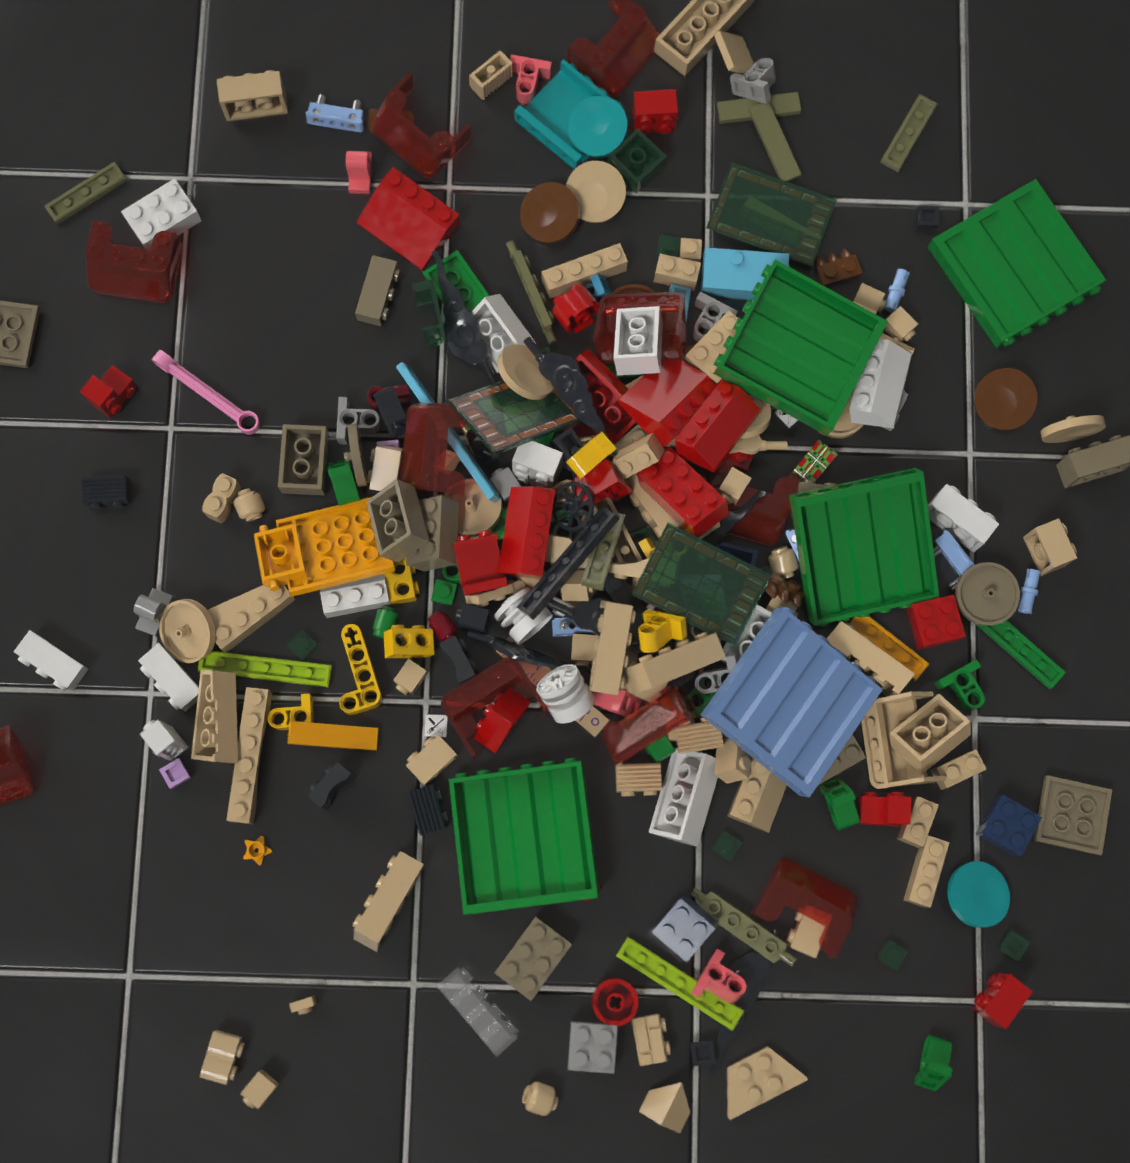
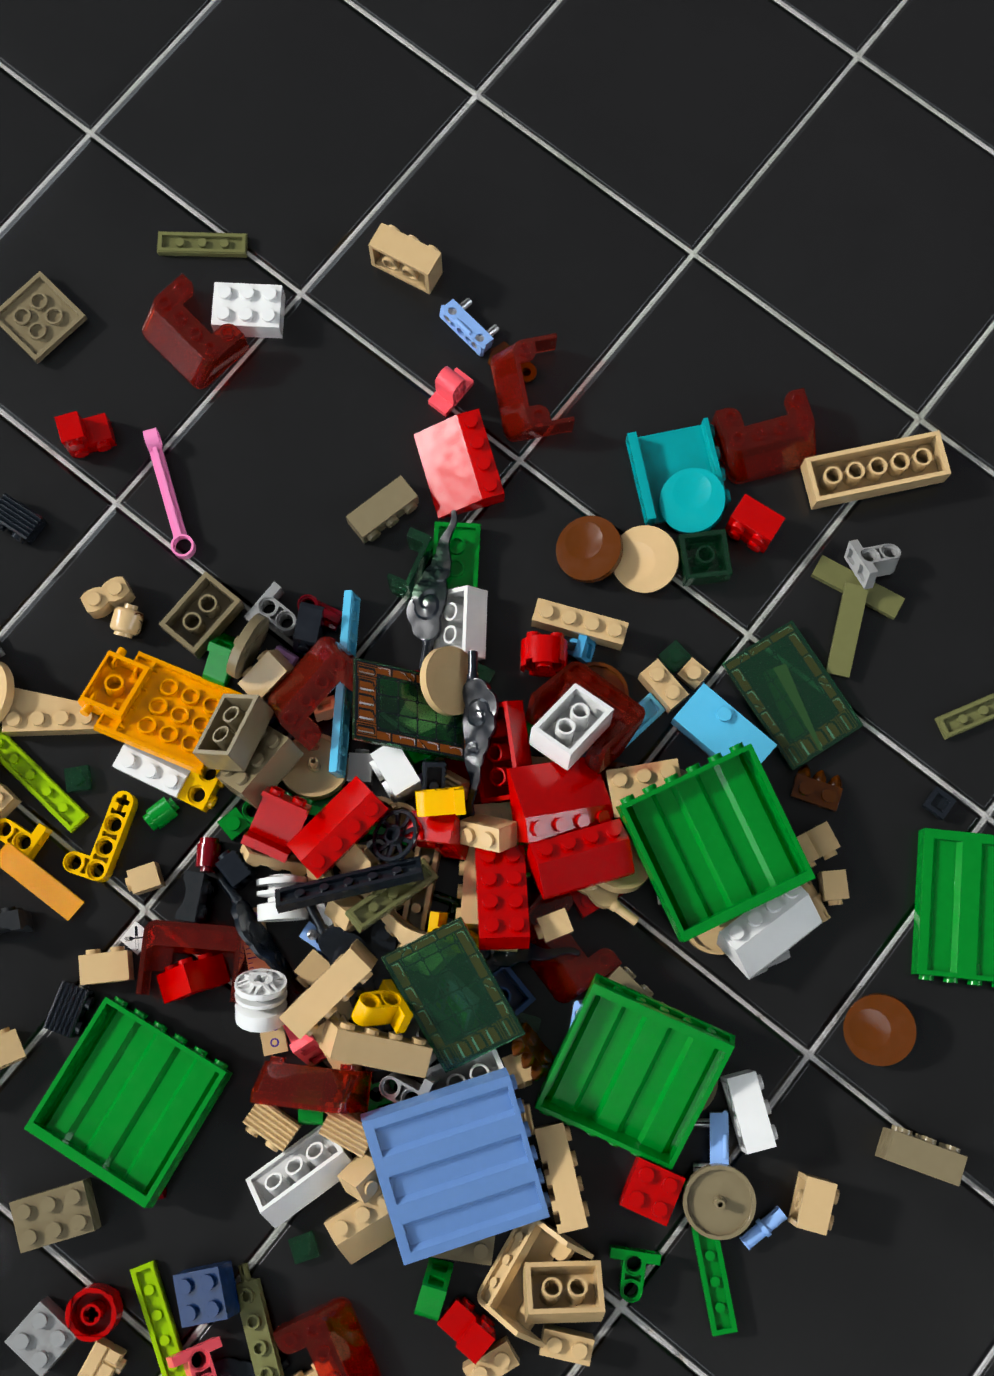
camera: 40 degrees right, 0 degrees up
(409, 646) = (163, 850): yellow brick -> none
(491, 75) = (632, 385): tan brick -> none
(529, 81) = (664, 416): coral tile -> none
(537, 299) = (518, 619): olive plate -> none
(706, 321) = (656, 752): light grey tile -> none
(734, 52) = (871, 520): tan tile -> none
(783, 562) = (554, 1025): tan head -> none
(814, 462) = (652, 956): piece -> none
(890, 644) = (593, 1179): light orange tile -> none
(896, 290) = (855, 851): light blue pin -> none
(1073, 428) = (920, 1107): tan piece -> none

